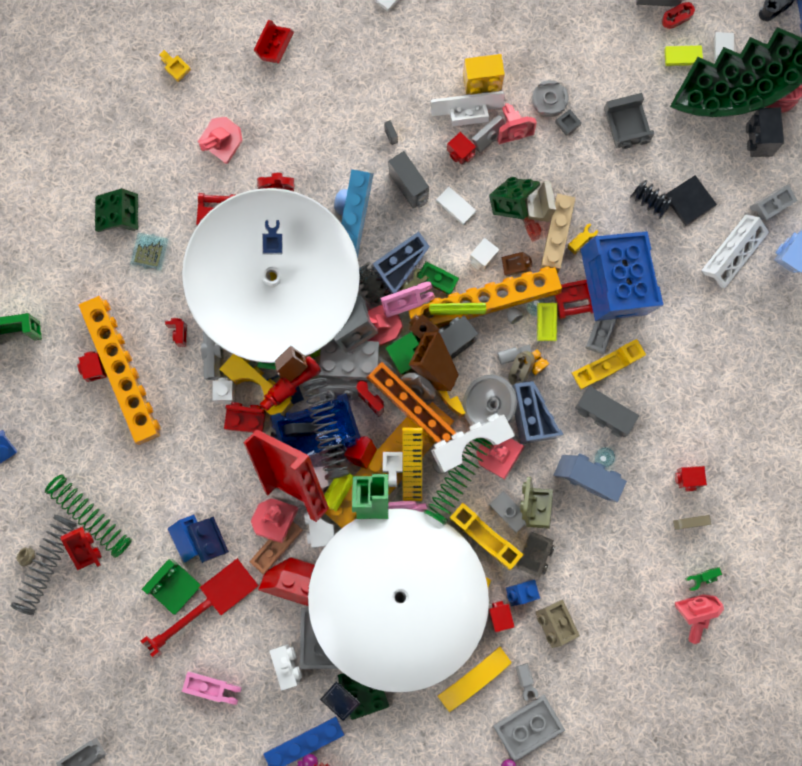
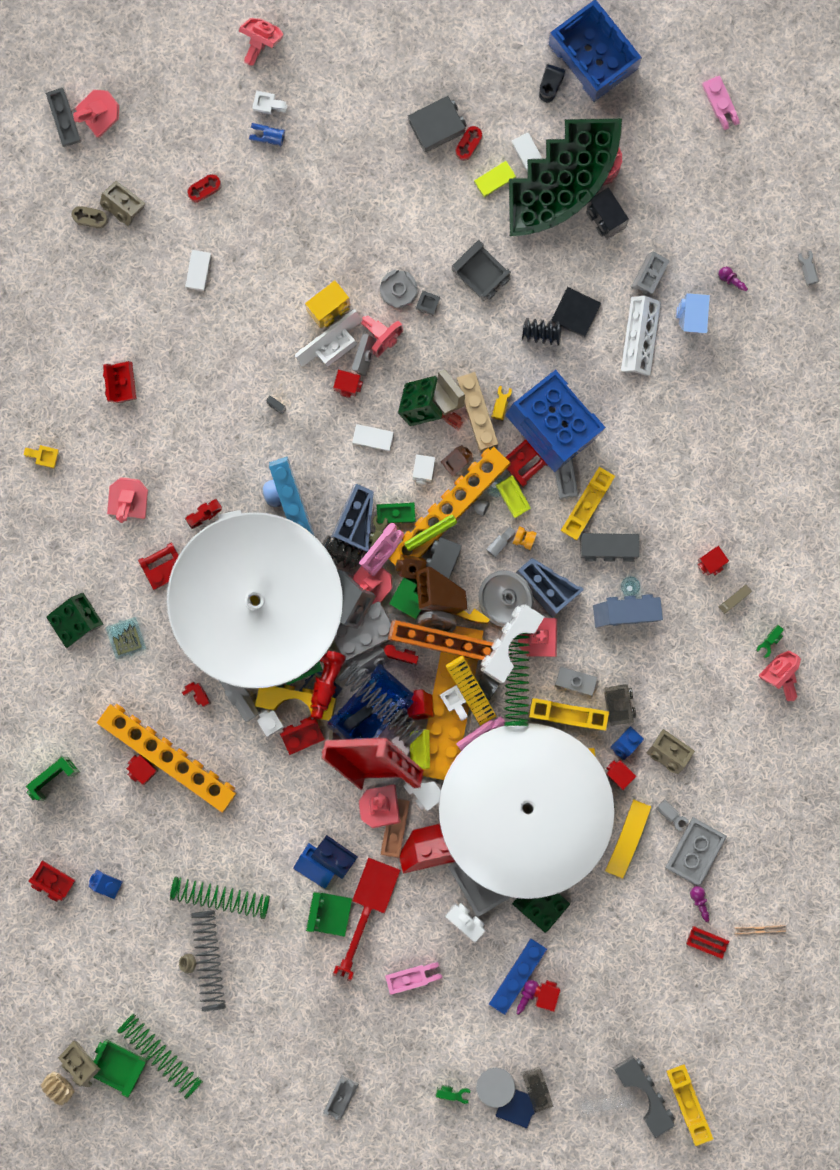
camera: 30 degrees left, 5 degrees up
(80, 548) = (231, 928): red bracket -> none
(272, 241) = (240, 571): dark blue plate -> none
(290, 363) = (318, 667): reddish brown brick -> none
(340, 701) = (527, 923): black sticker -> none
(371, 496) = (452, 739): green plate -> none
(408, 180) = (319, 441): dark grey brick -> none
(429, 470) = (488, 685): none -> dark grey tile
(517, 367) = (519, 551): dark tan beam -> none
(537, 505) = (596, 663): olive bracket -> none

